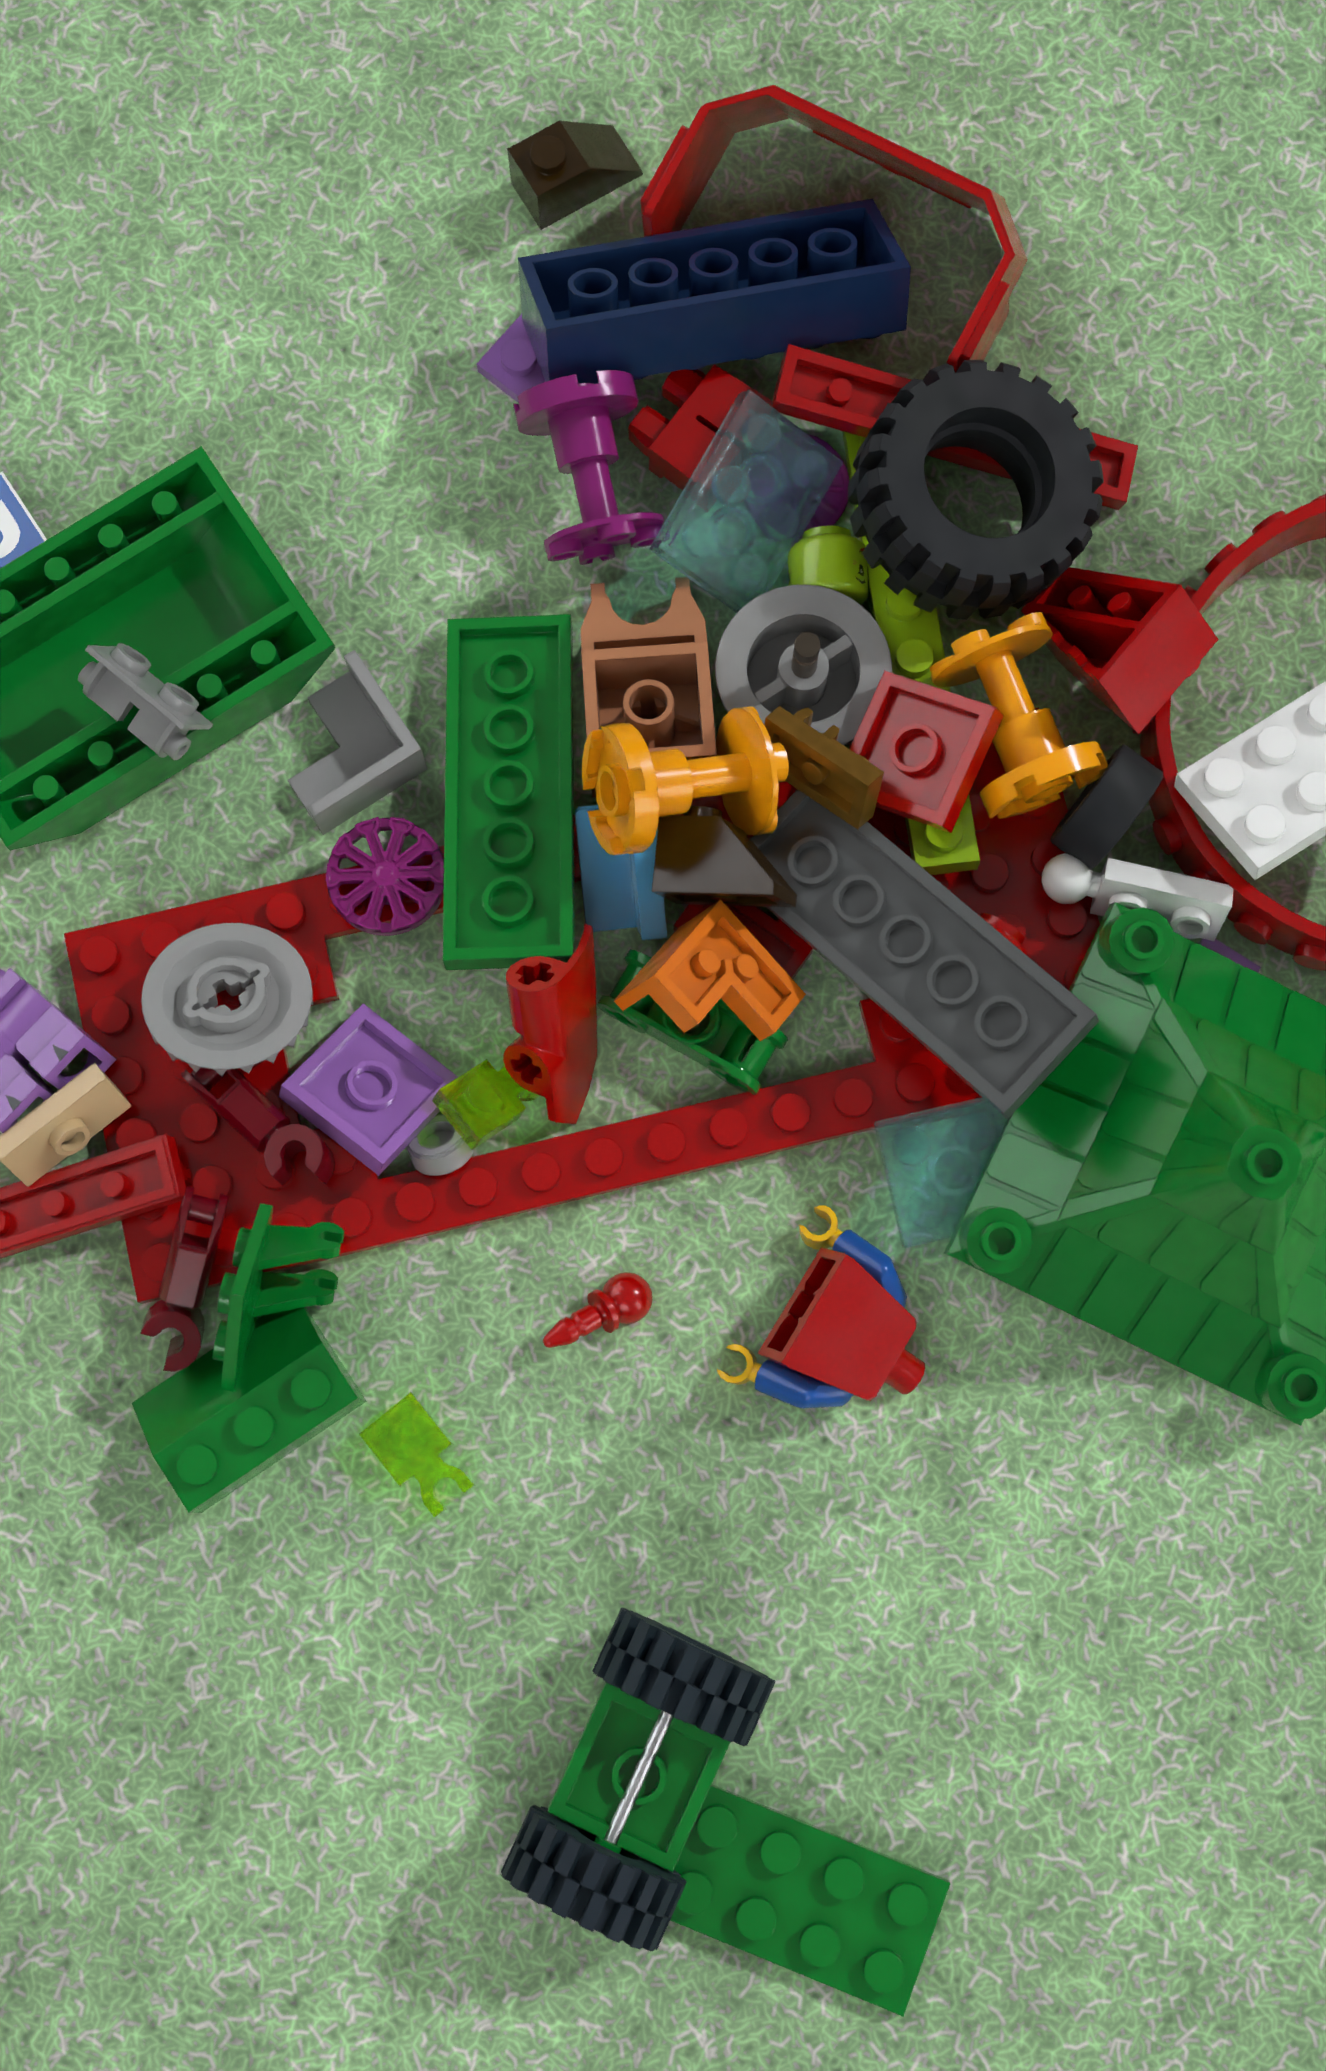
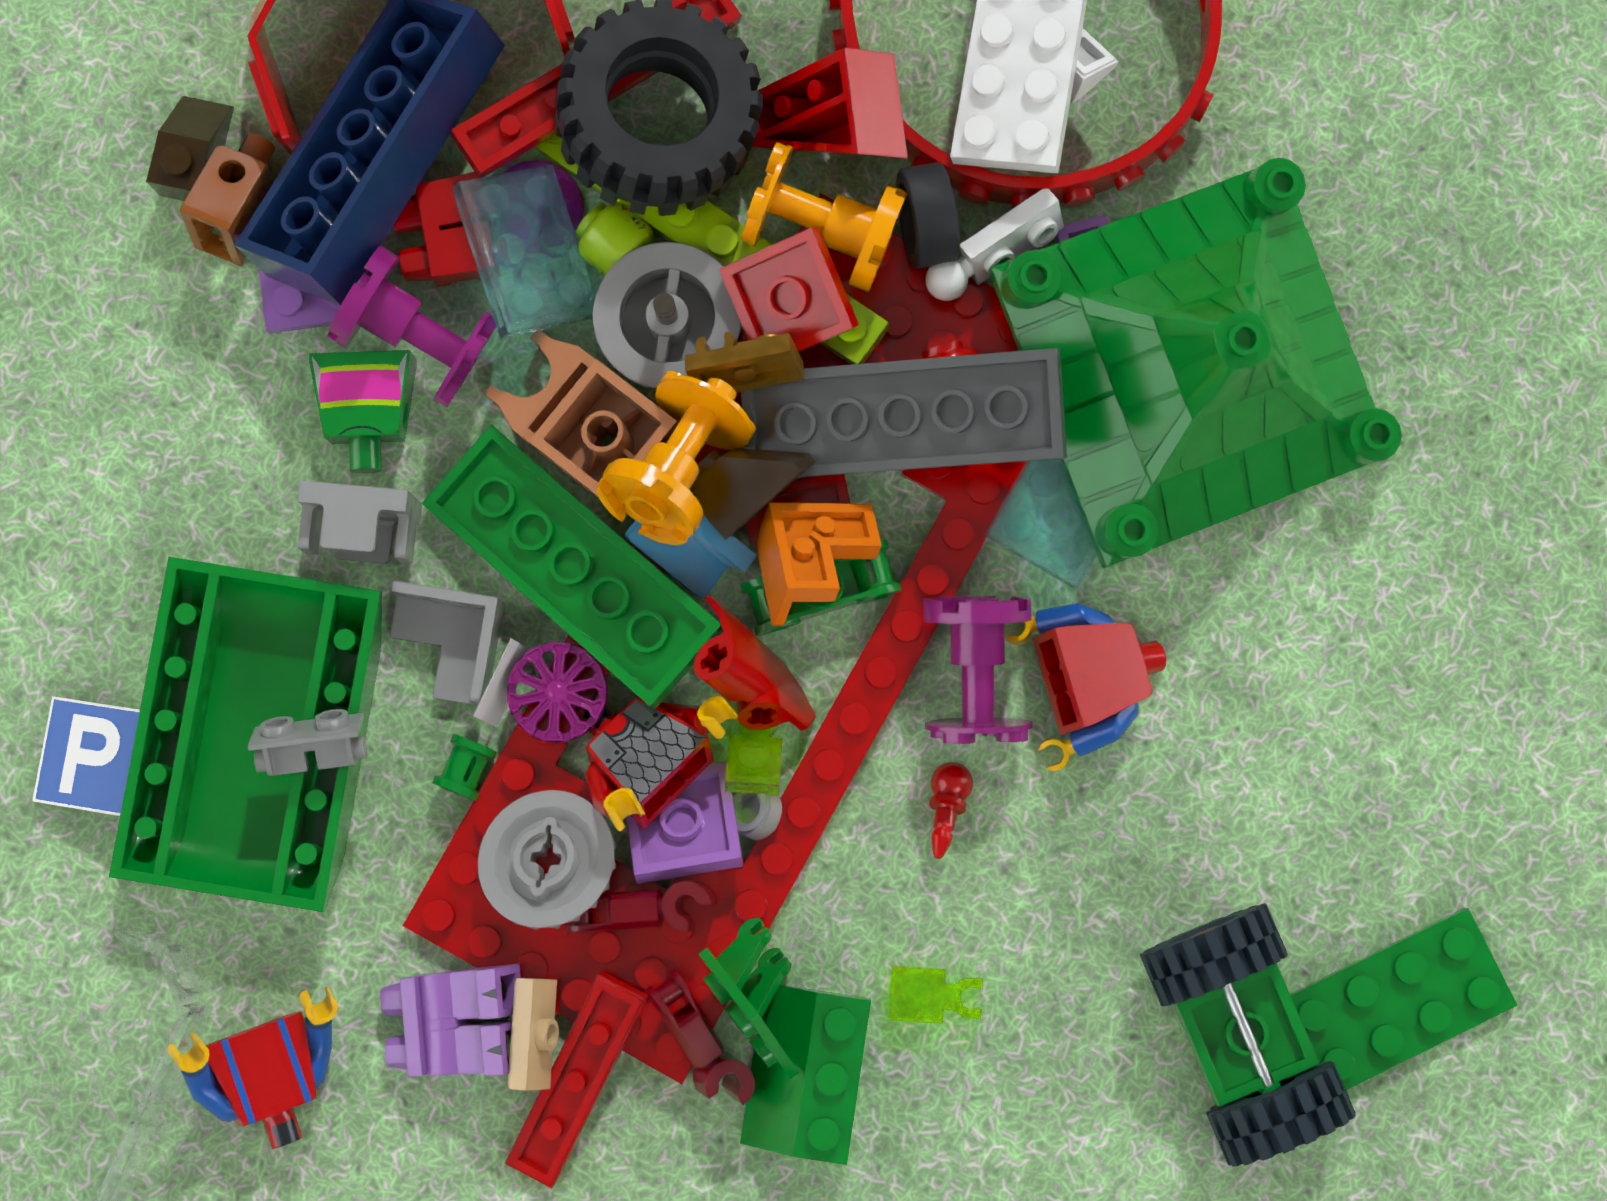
camera: 45 degrees left, 5 degrees up
(249, 861) = (464, 767): none -> green bush
(325, 829) = (495, 696): none -> white sticker
(384, 578) = (358, 521): none -> light grey panel
(401, 1006) = (650, 755): none -> torso
(491, 493) = (364, 401): none -> green torso
(557, 218) = (224, 204): none -> dark orange torso
(765, 1202) = (977, 646): none -> magenta piece

